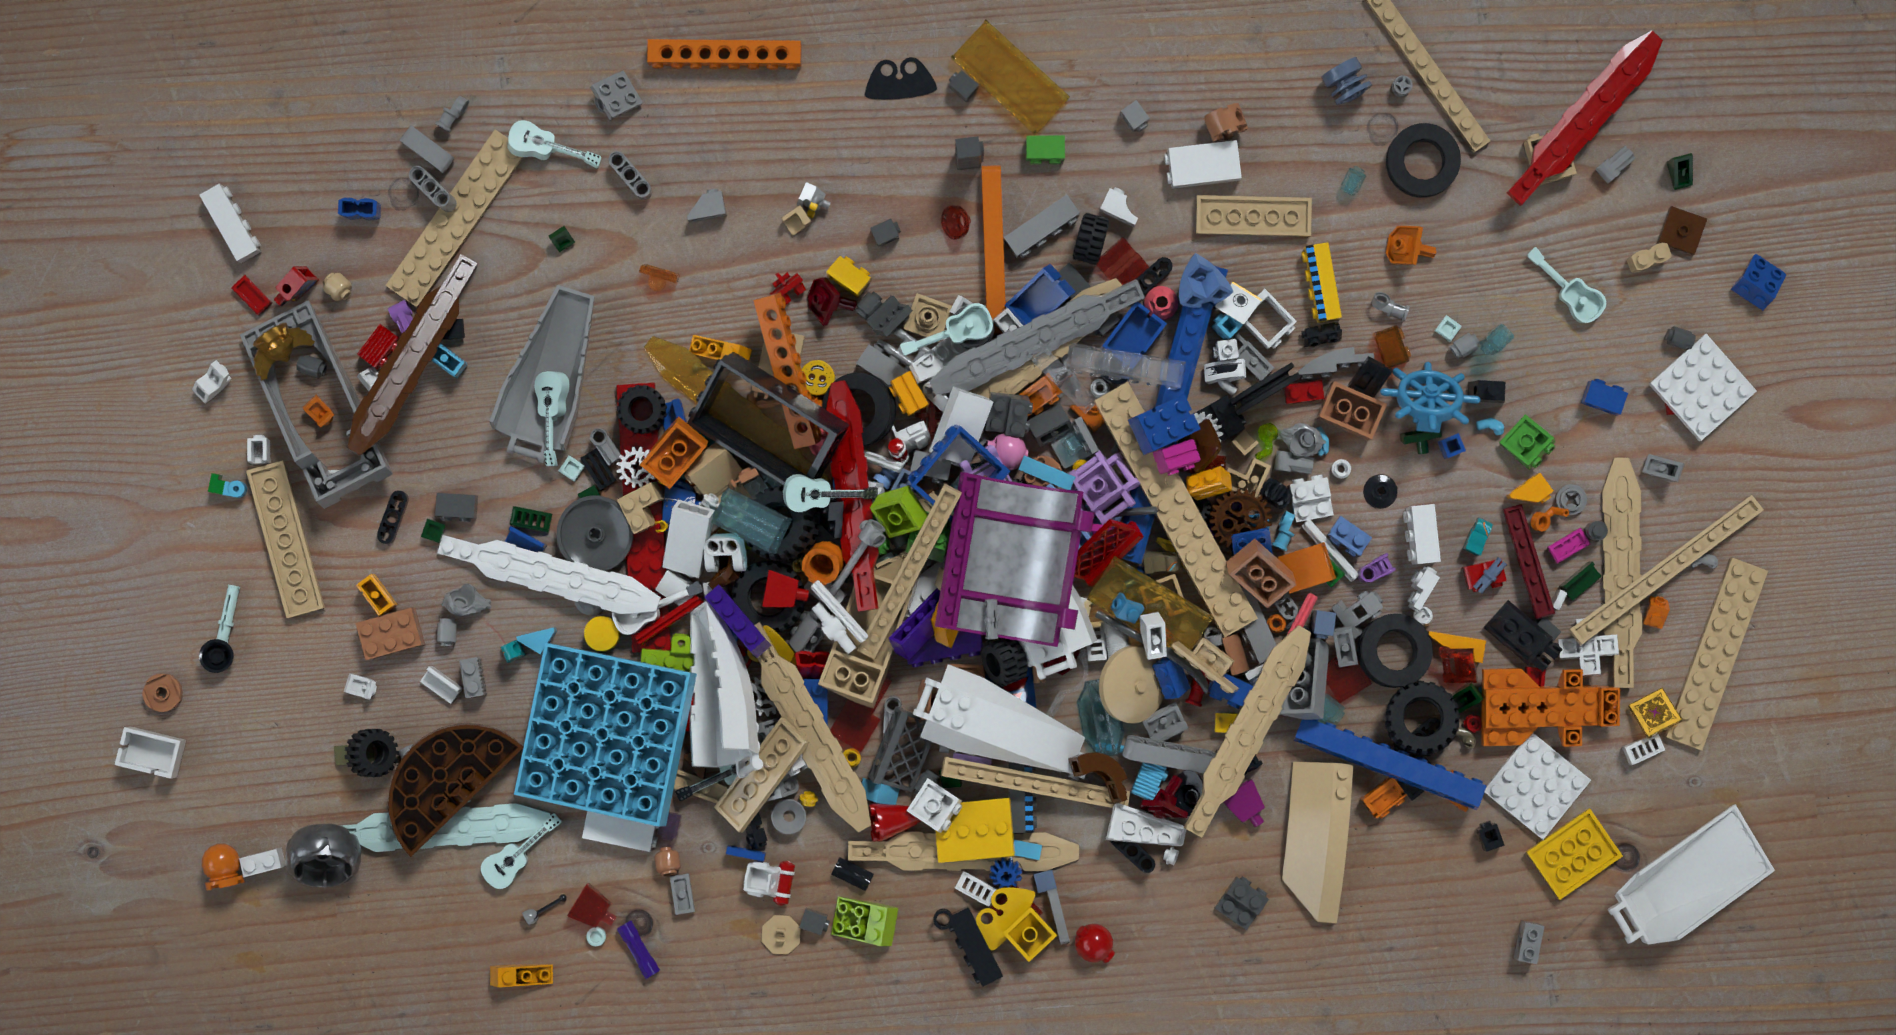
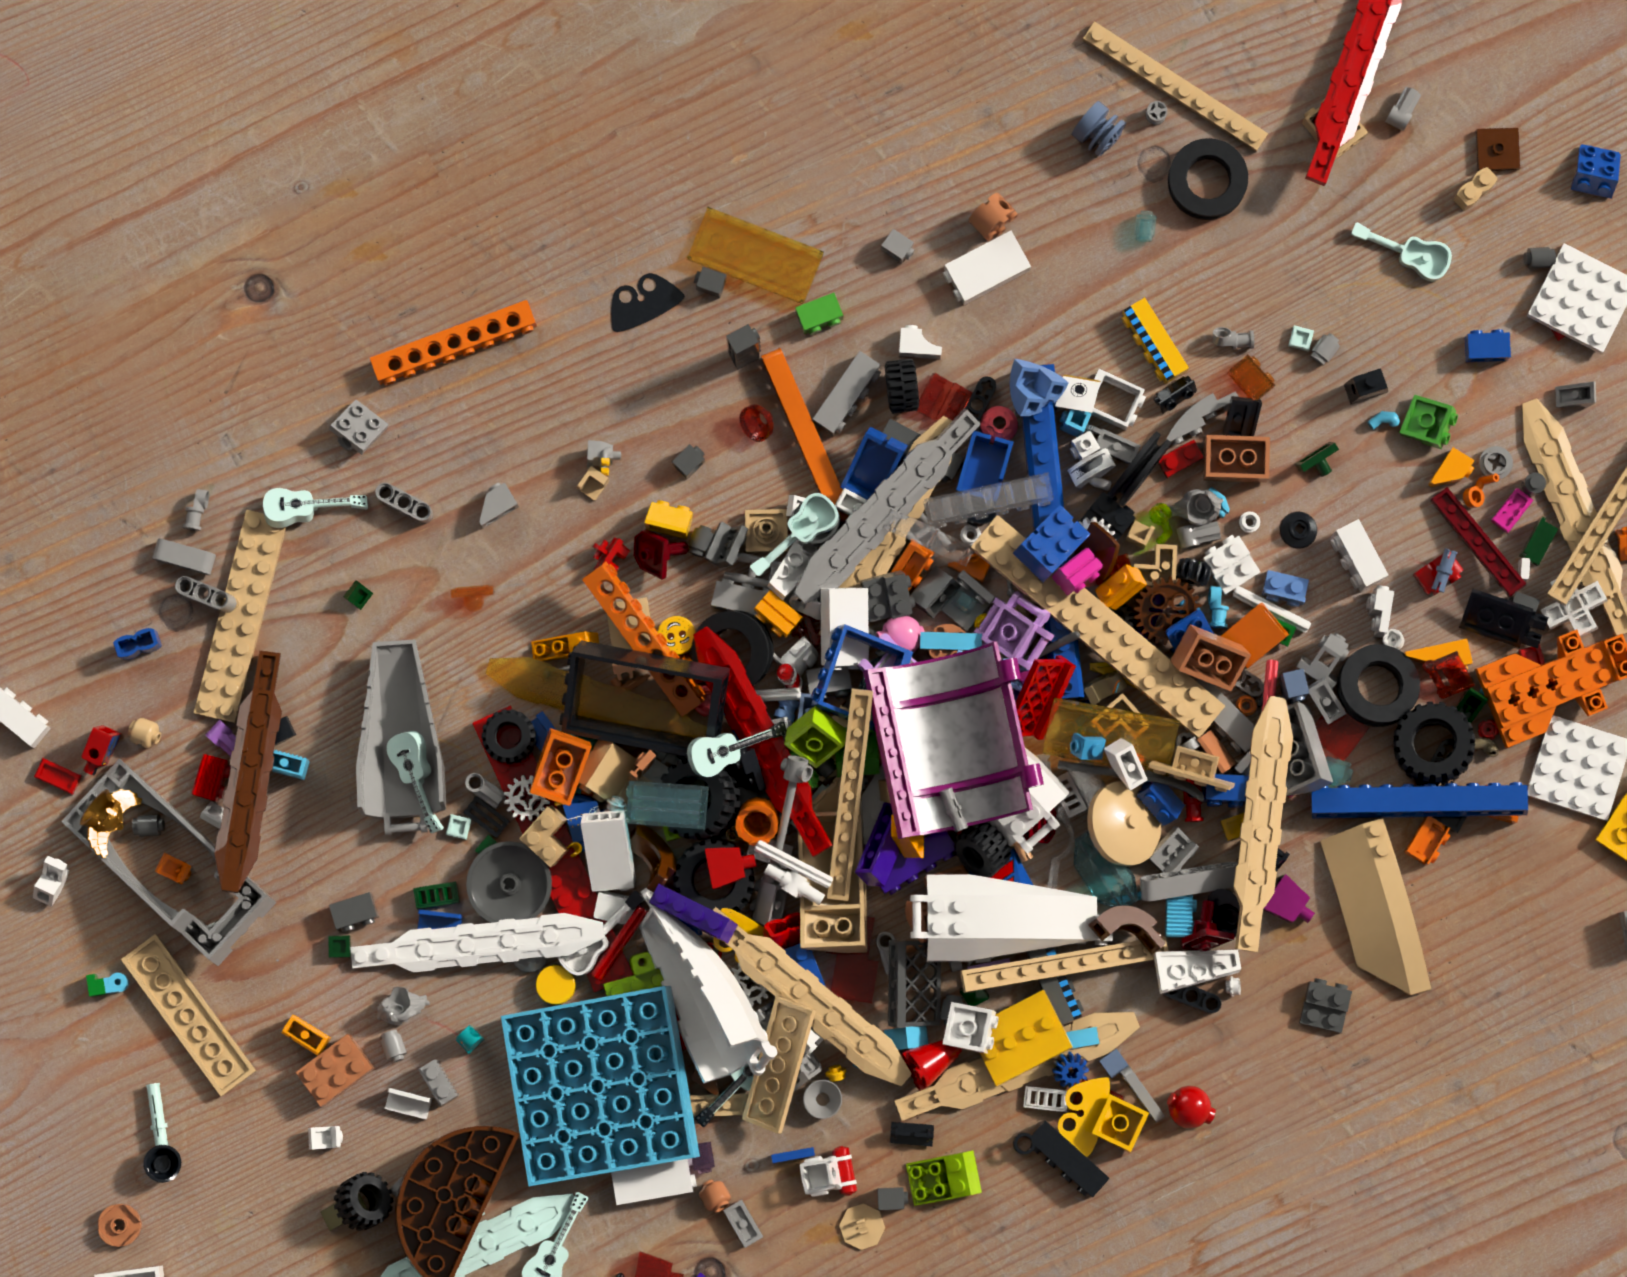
camera: 20 degrees left, 5 degrees down
(258, 450) = (126, 933): white window -> none
(402, 505) = (286, 965): black beam -> none
(537, 639) = (491, 1016): medium azure slope -> none
(712, 554) = (650, 845): white piece -> none
(756, 837) = (797, 1134): black hinge -> none
(857, 756) = (864, 1006): yellow plate -> none
(1253, 215) = (1058, 300): tan plate -> none
(1379, 568) = (1328, 608): medium lavender piece -> none
(1405, 245) = (1225, 271): orange piece -> none
(1429, 406) = (1314, 421): dark azure piece -> none
(1451, 446) = (1352, 455): blue brick -> none
(1477, 537) = (1416, 537): teal leg -> none
(1494, 841) = (1559, 838): black brick -> none
(1496, 339) = (1354, 330): clear light blue brick -> none
(1681, 171) = (1472, 90): dark green slope -> none

